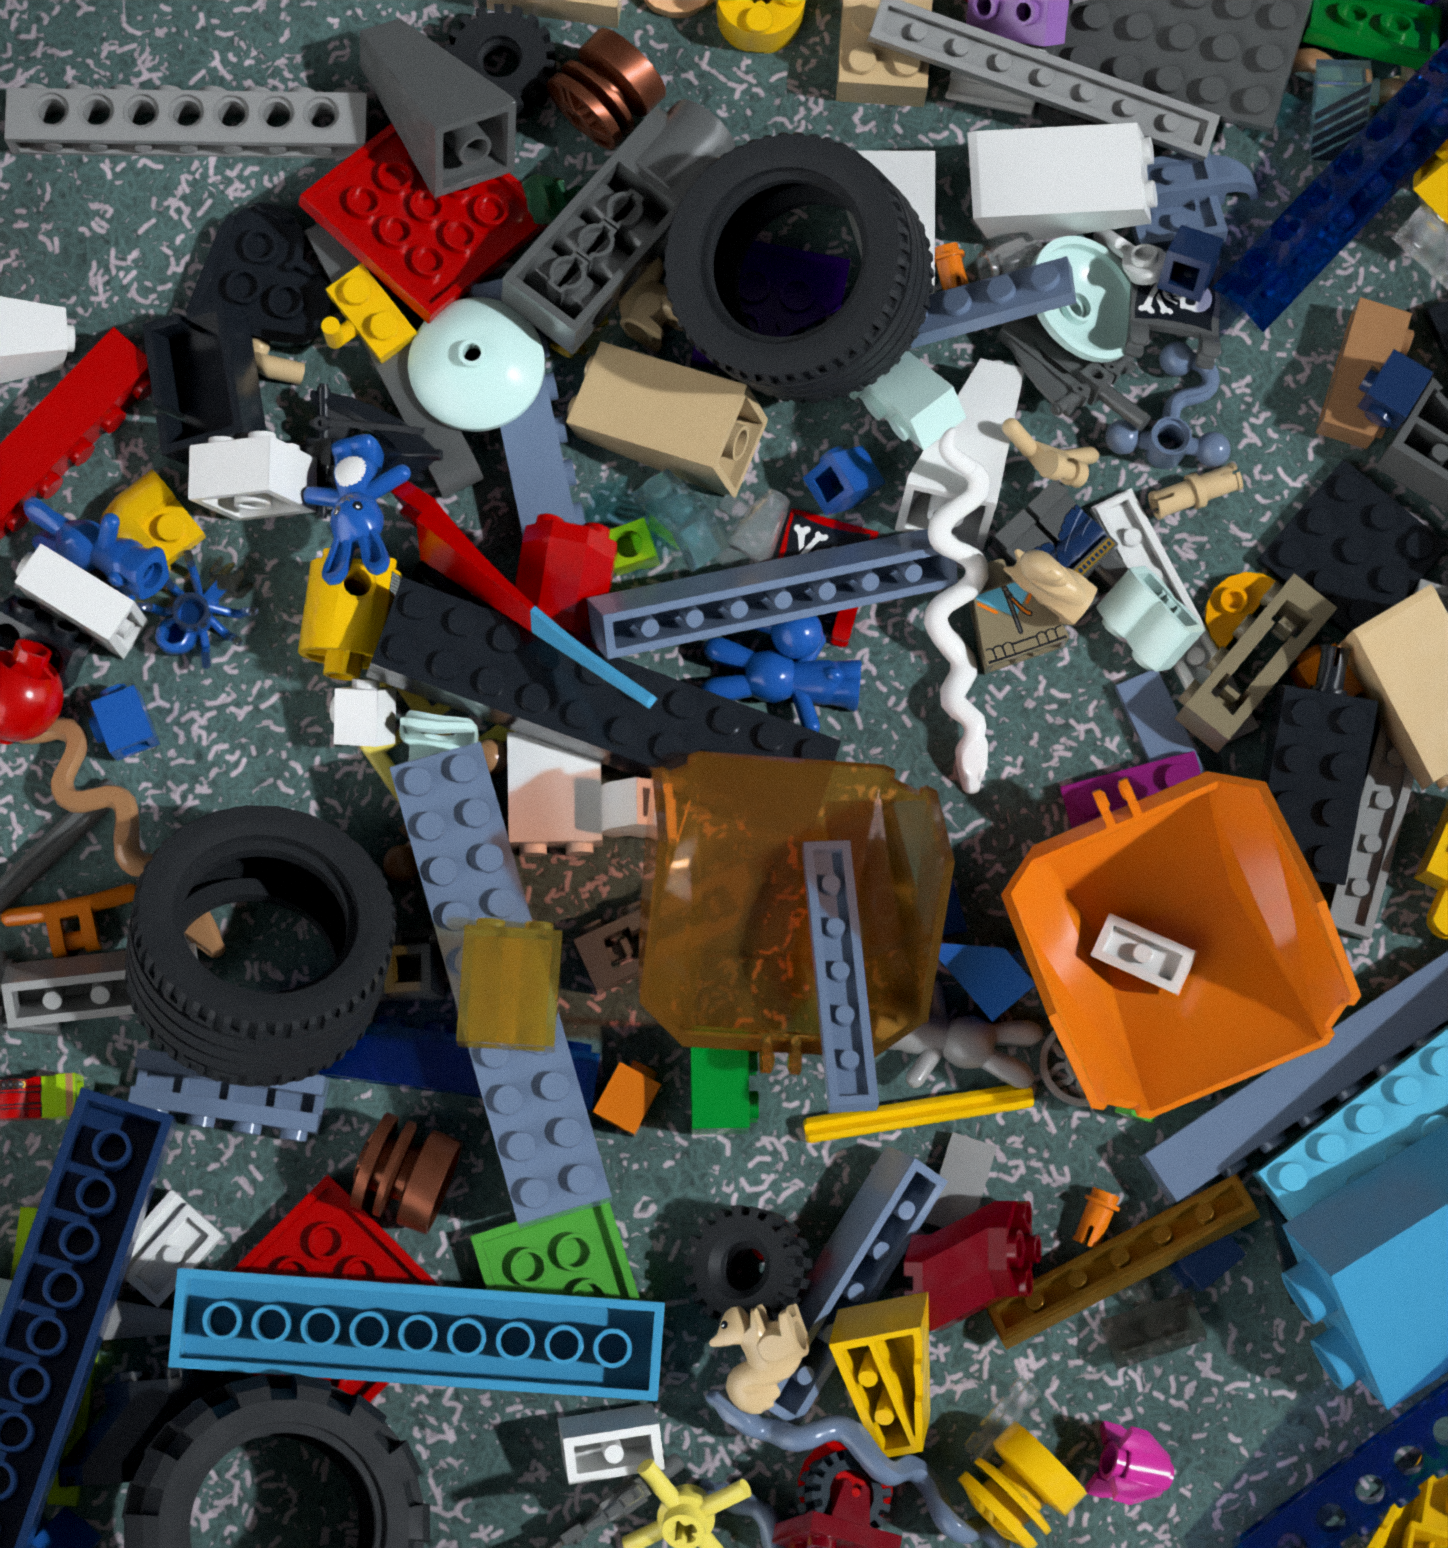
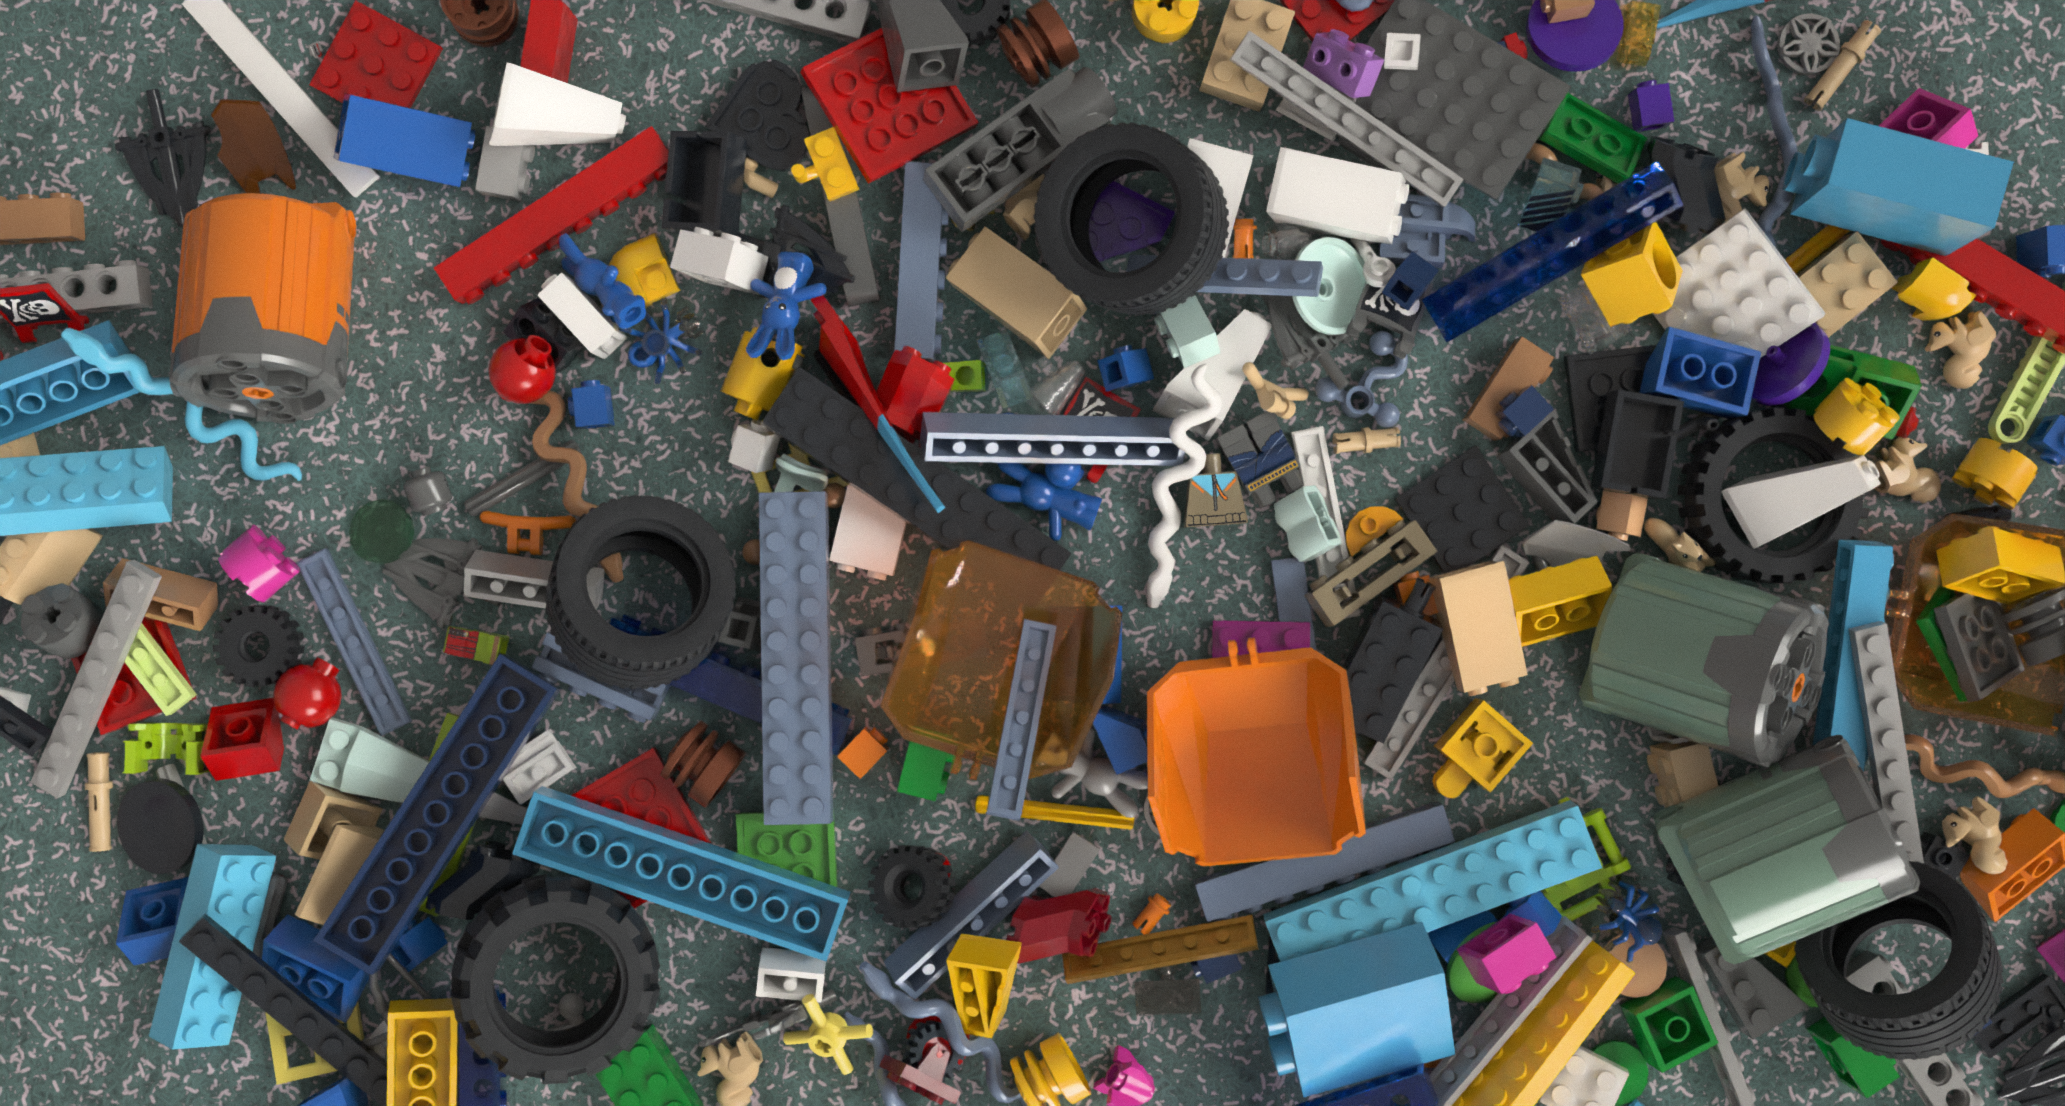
camera: 25 degrees right, 10 degrees up
(482, 391) = (907, 238): light aqua dish -> none
(510, 986) = (798, 669): clear yellow brick -> none
(547, 197) = (977, 113): clear green plate -> none
(625, 807) = (911, 559): white brick -> none
(771, 1353) = (908, 950): tan animal -> none
(1004, 1412) = (1053, 1024): clear axle -> none
(1052, 584) = (1246, 489): tan animal -> none
(1143, 954) = (1233, 753): white plate -> none

